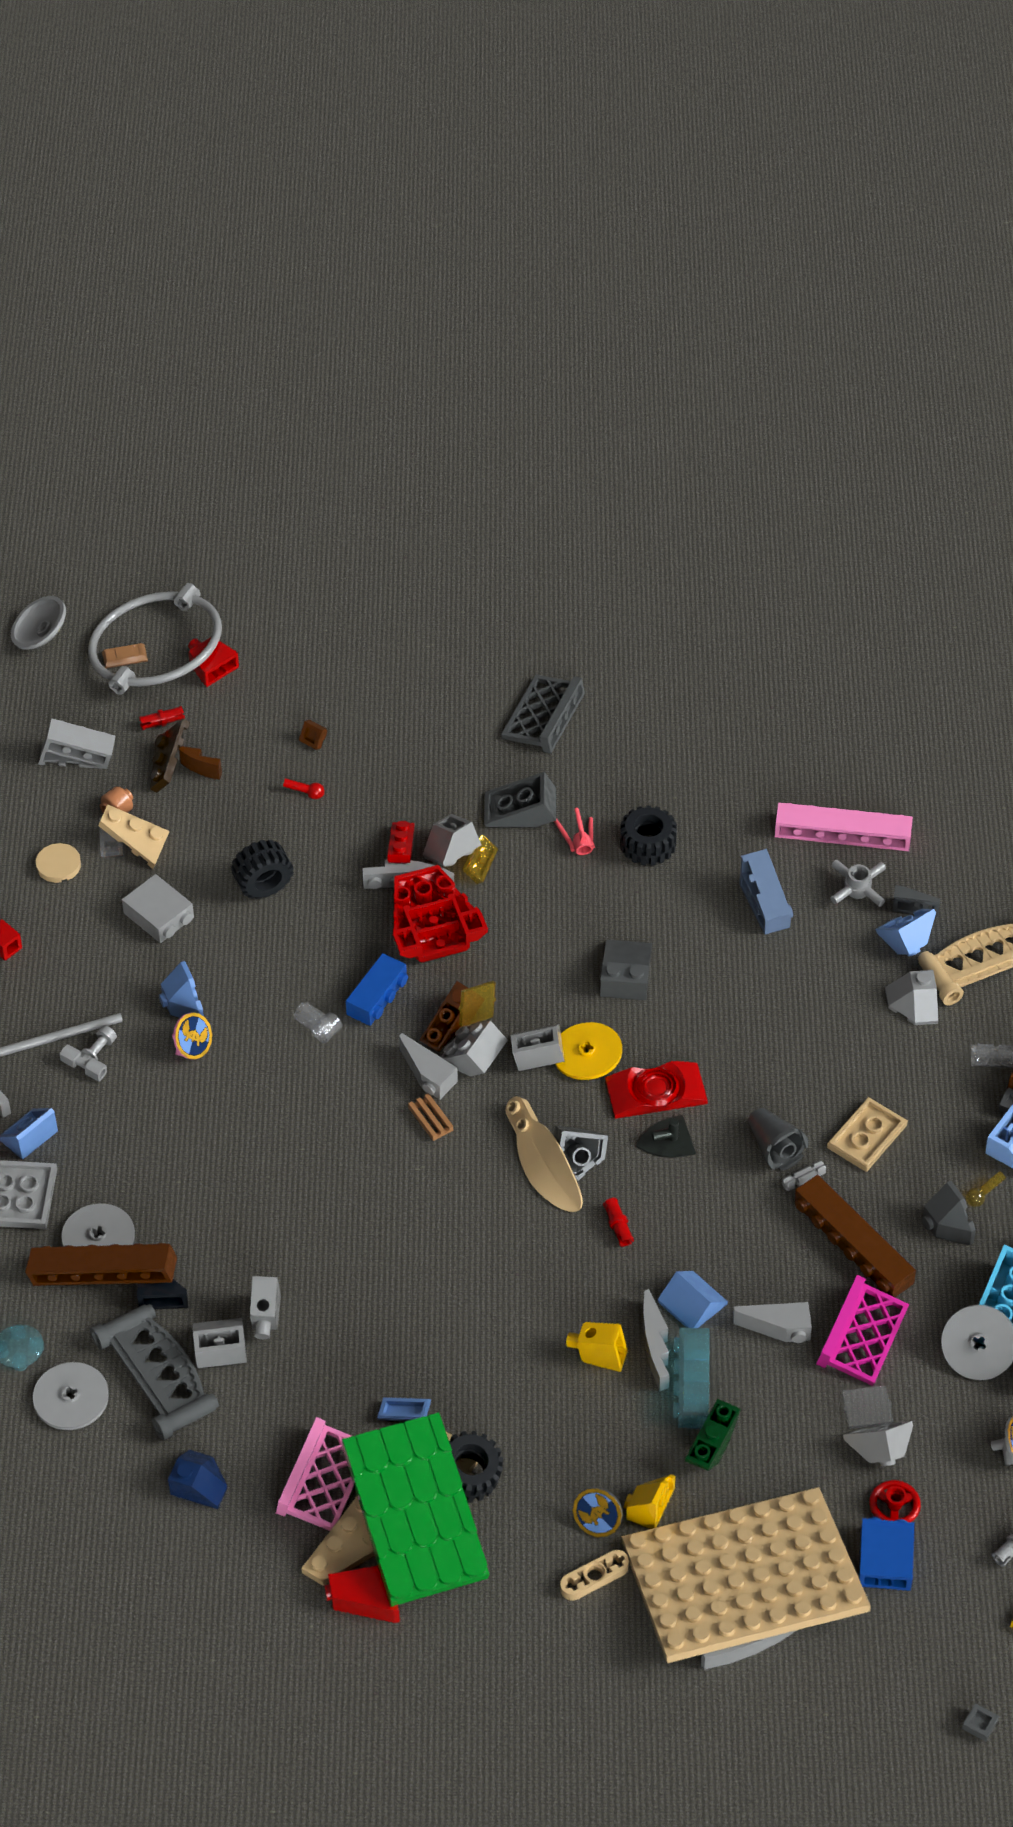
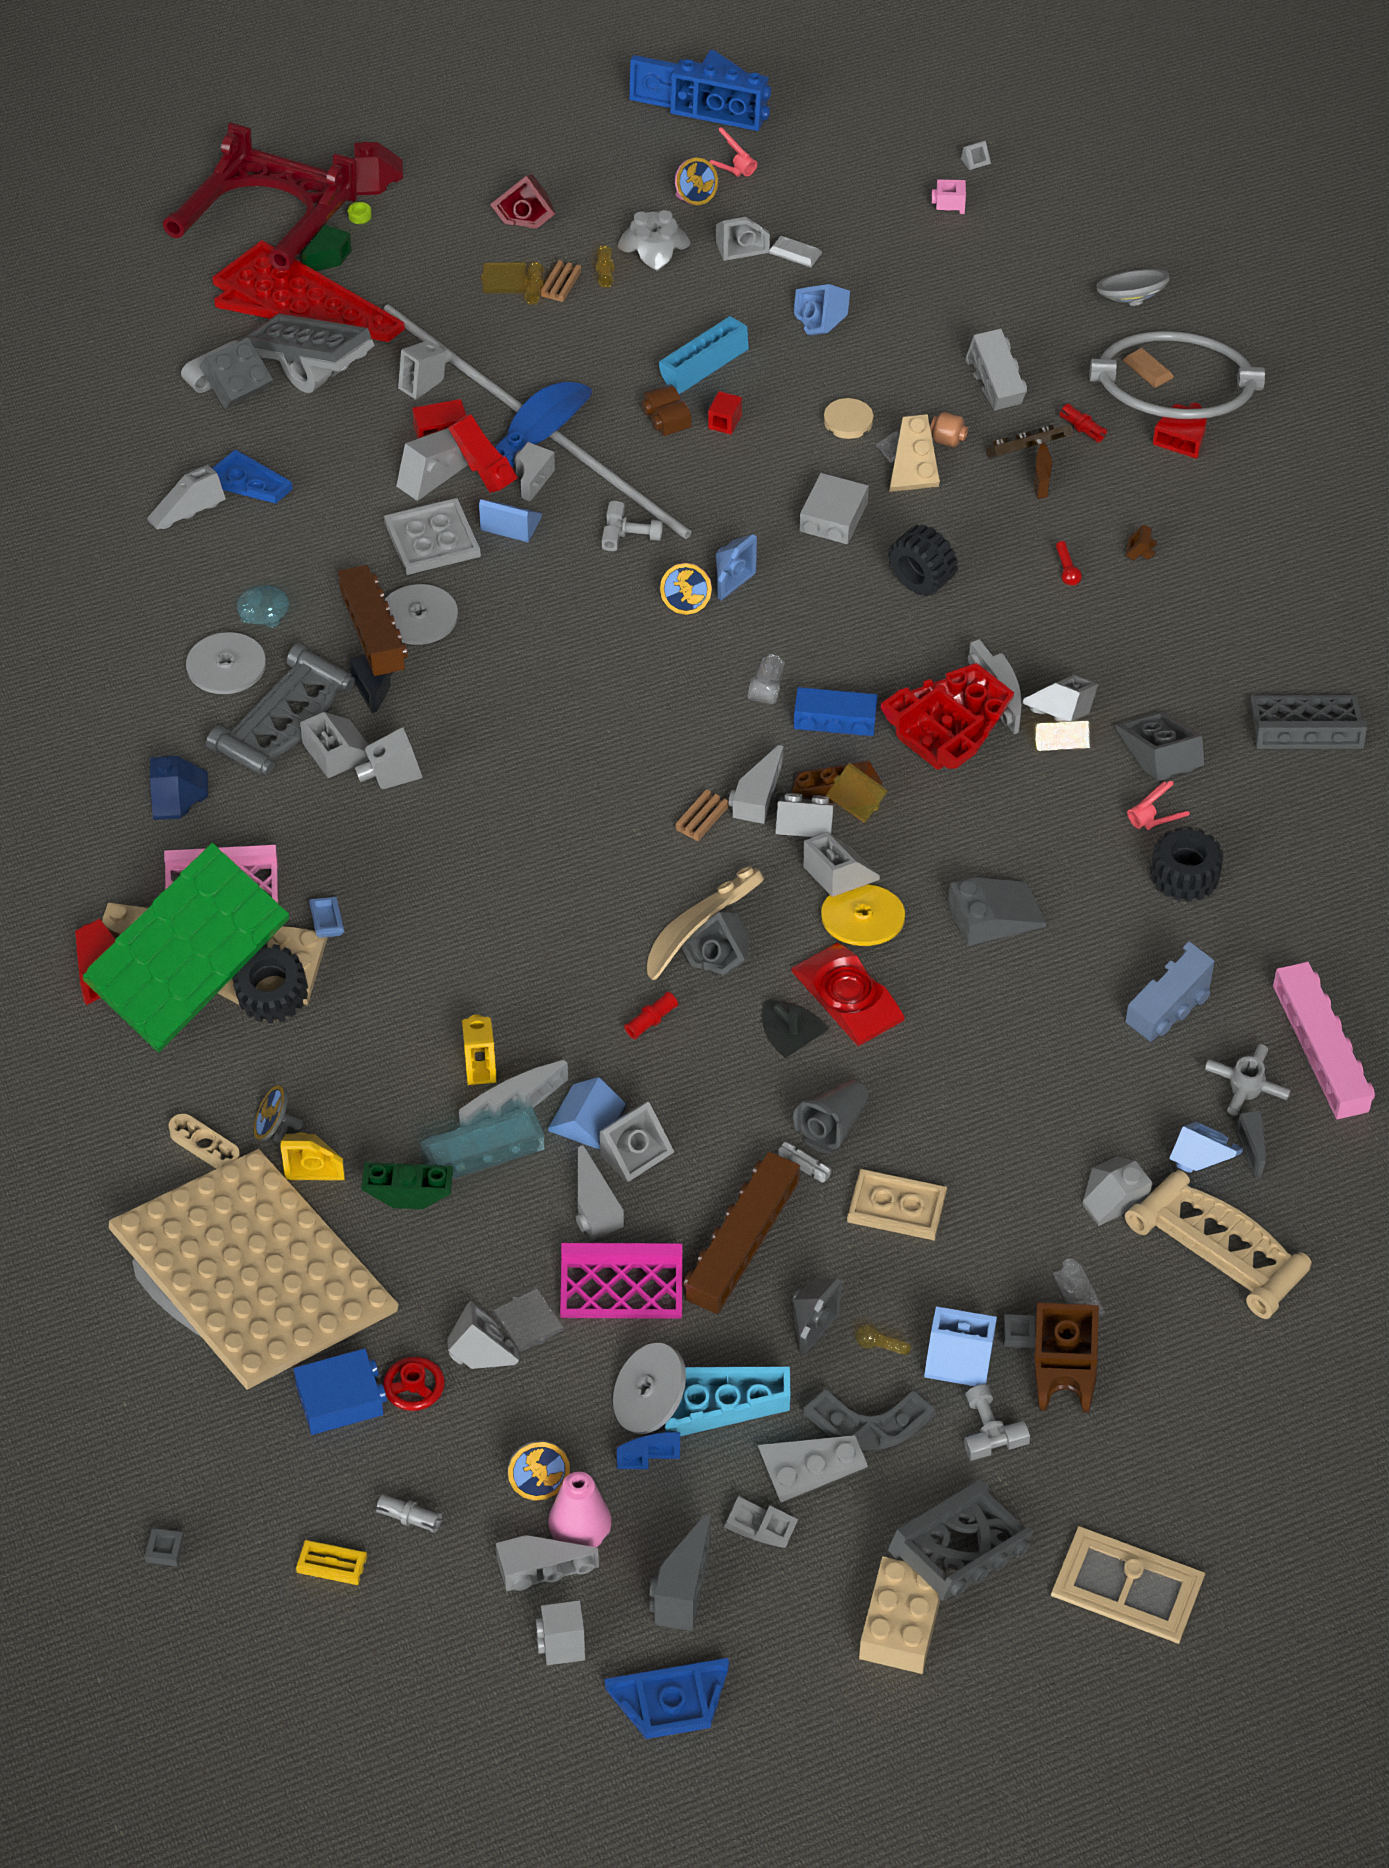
camera: 65 degrees right, 0 degrees up
(401, 842) = (1037, 660): red plate -> none
(740, 1276) = (634, 1142): none -> light grey slope

